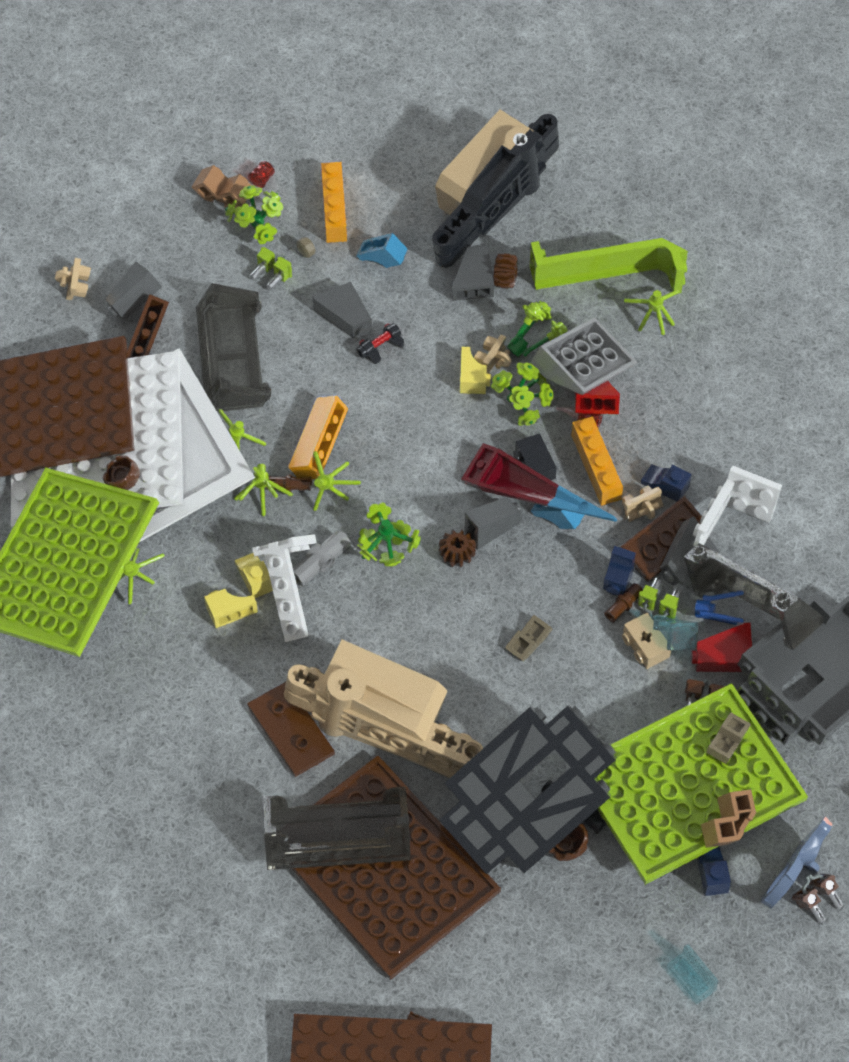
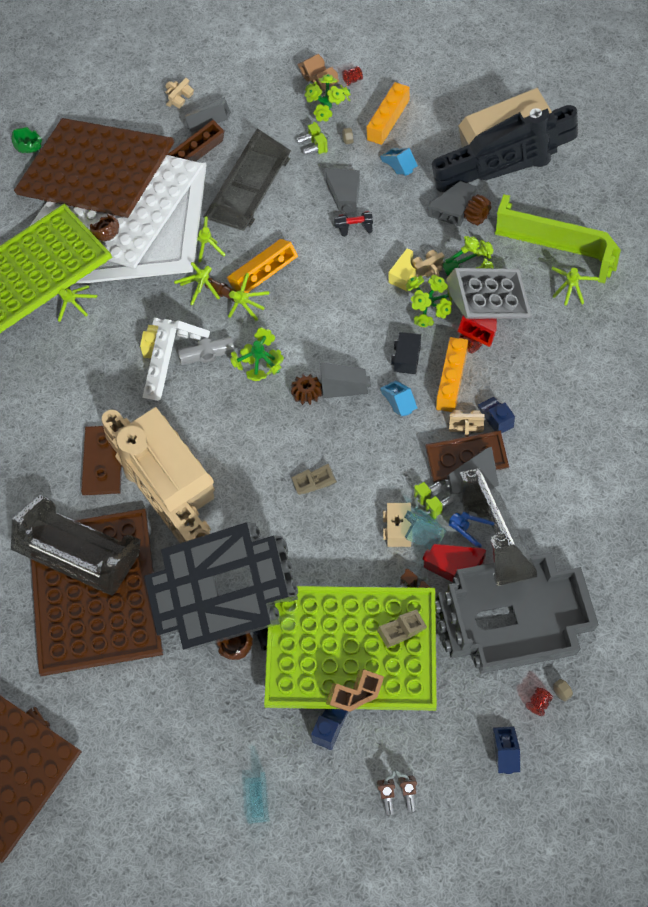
camera: 35 degrees right, 0 degrees up
(228, 608) = (117, 354): light yellow arch -> none
(505, 476) = (376, 355): dark red plate -> none
(619, 571) = (411, 463): dark blue arch -> none
(623, 603) = (400, 488): reddish brown pin -> none
(741, 492) = (544, 445): white bracket -> none
(802, 856) = (404, 753): sand blue animal -> none

